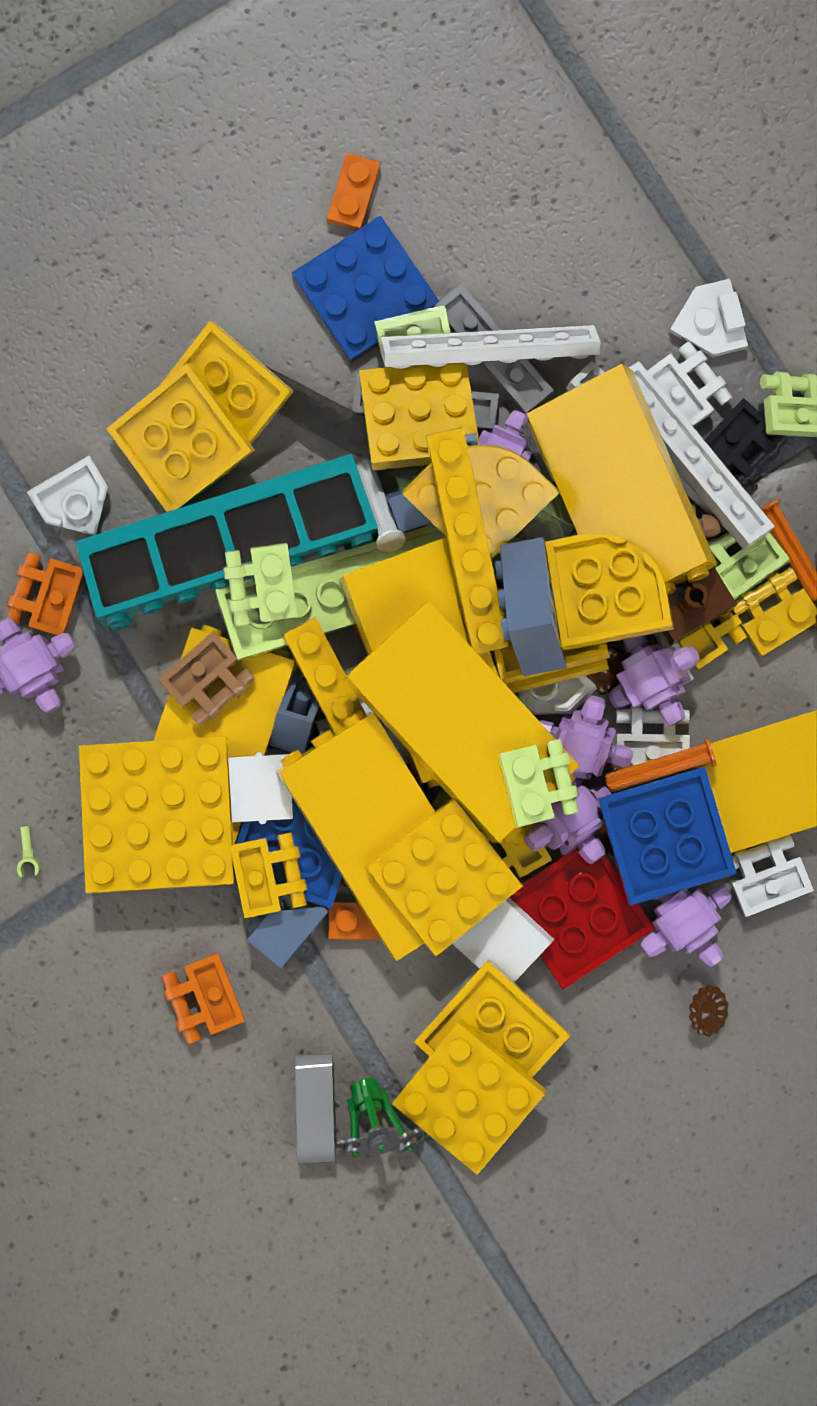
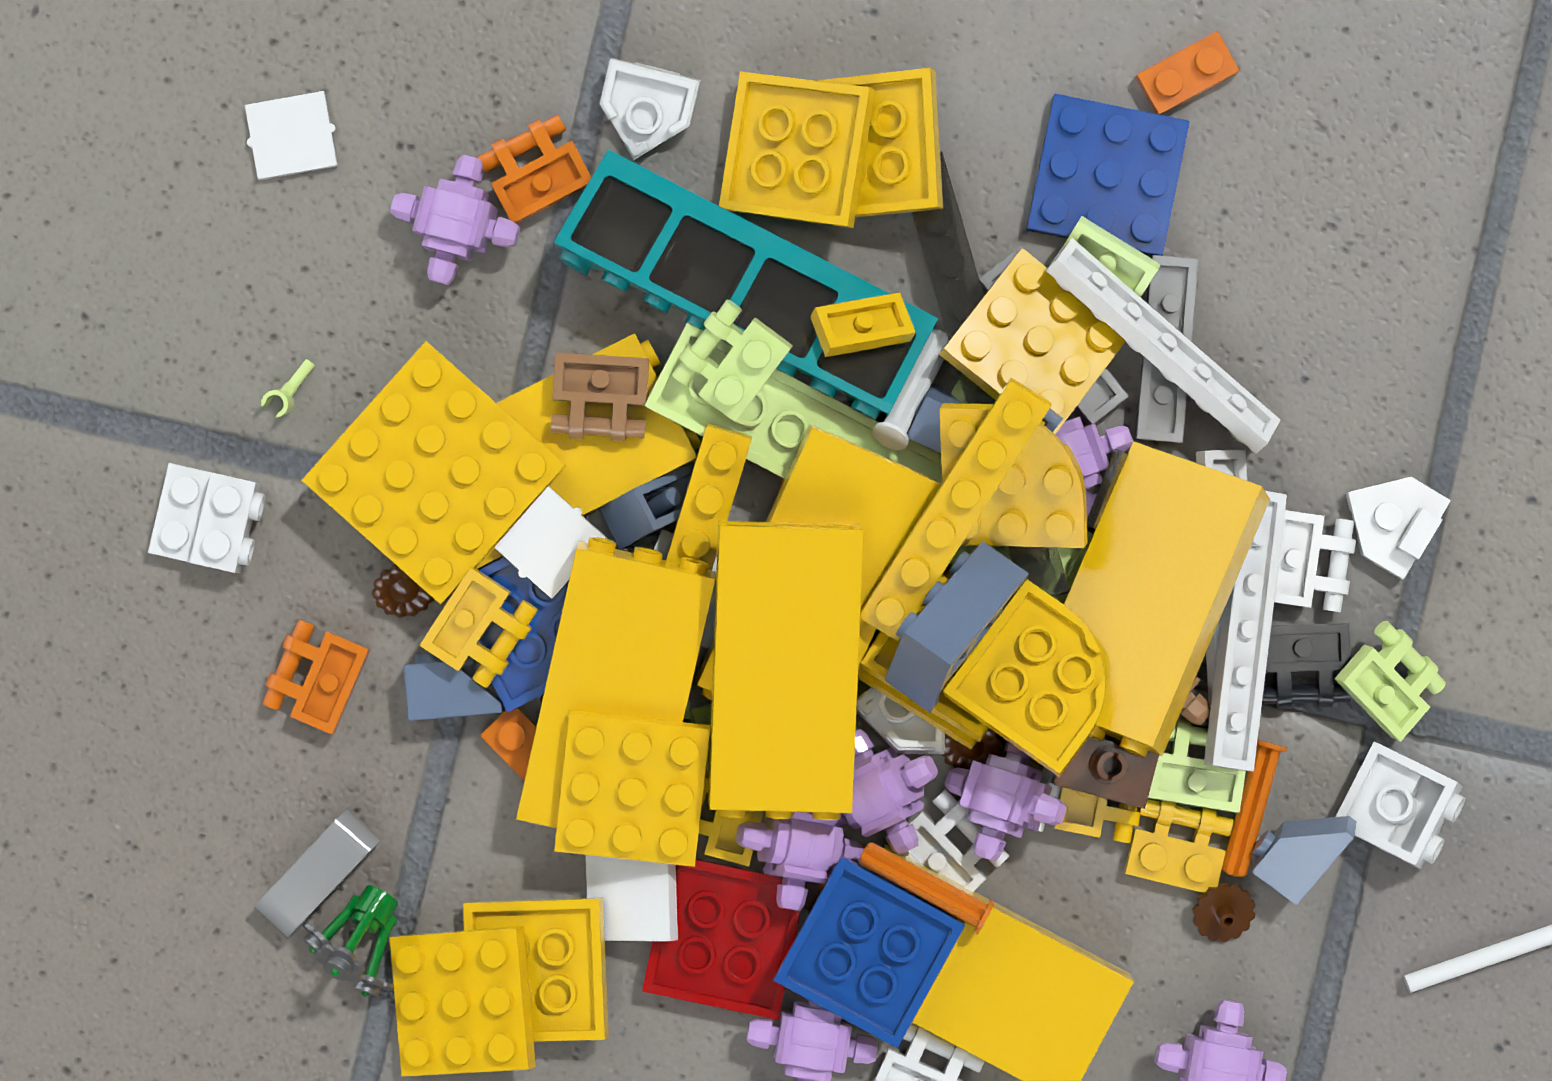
camera: 45 degrees right, 5 degrees up
(52, 972) = (206, 518): none -> white plate
(204, 903) = (399, 593): none -> reddish brown piece
(313, 494) = (862, 324): none -> yellow plate
(527, 786) = (785, 783): yellowish green plate -> none

